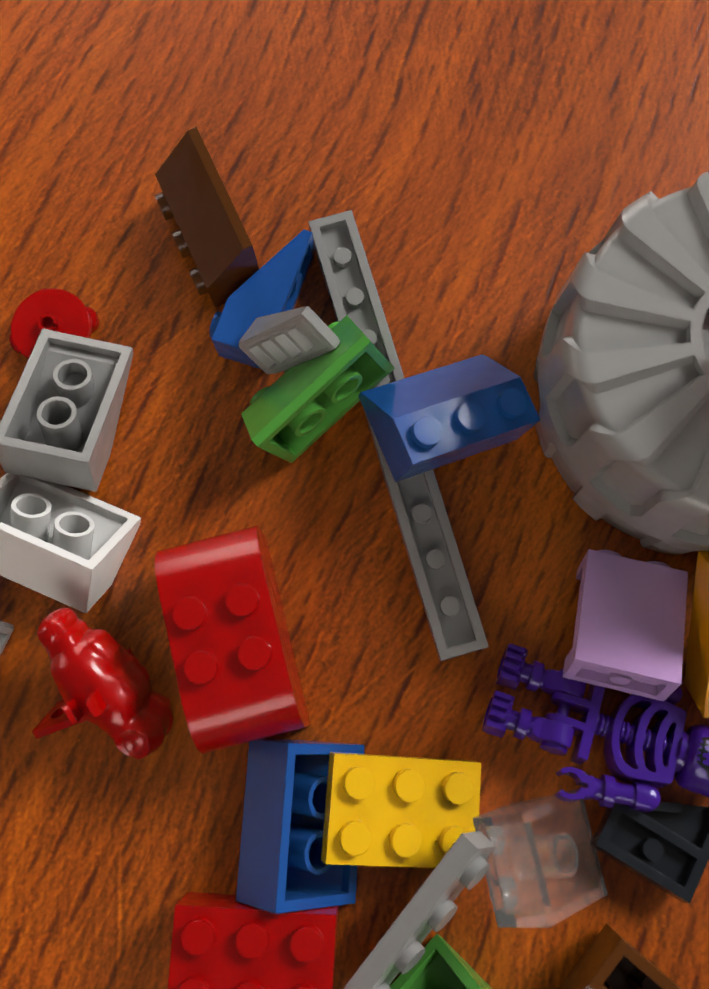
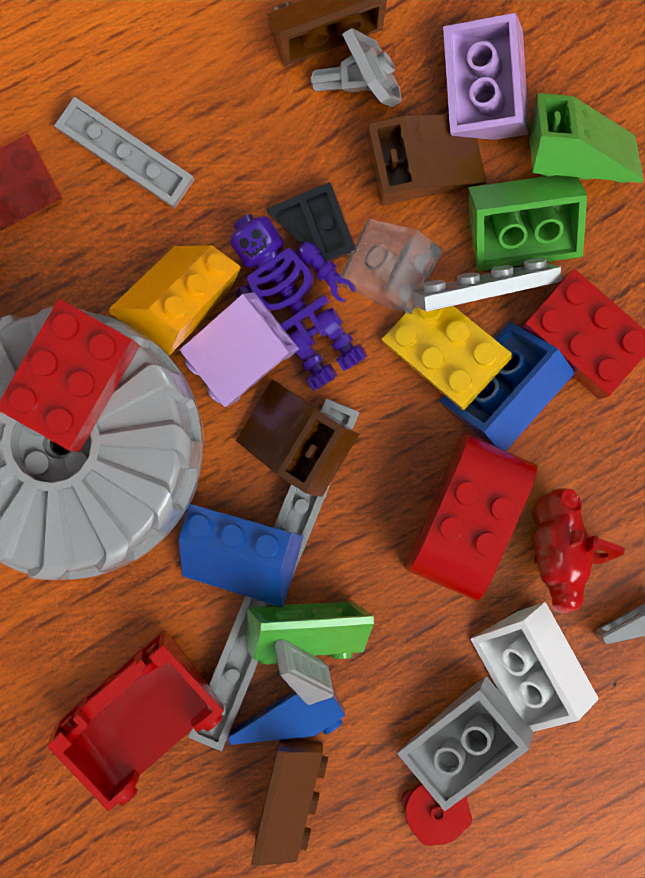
camera: 150 degrees left, 10 degrees up
(417, 180) = (134, 720): none -> red windscreen
(482, 574) = (297, 439): none -> reddish brown slope

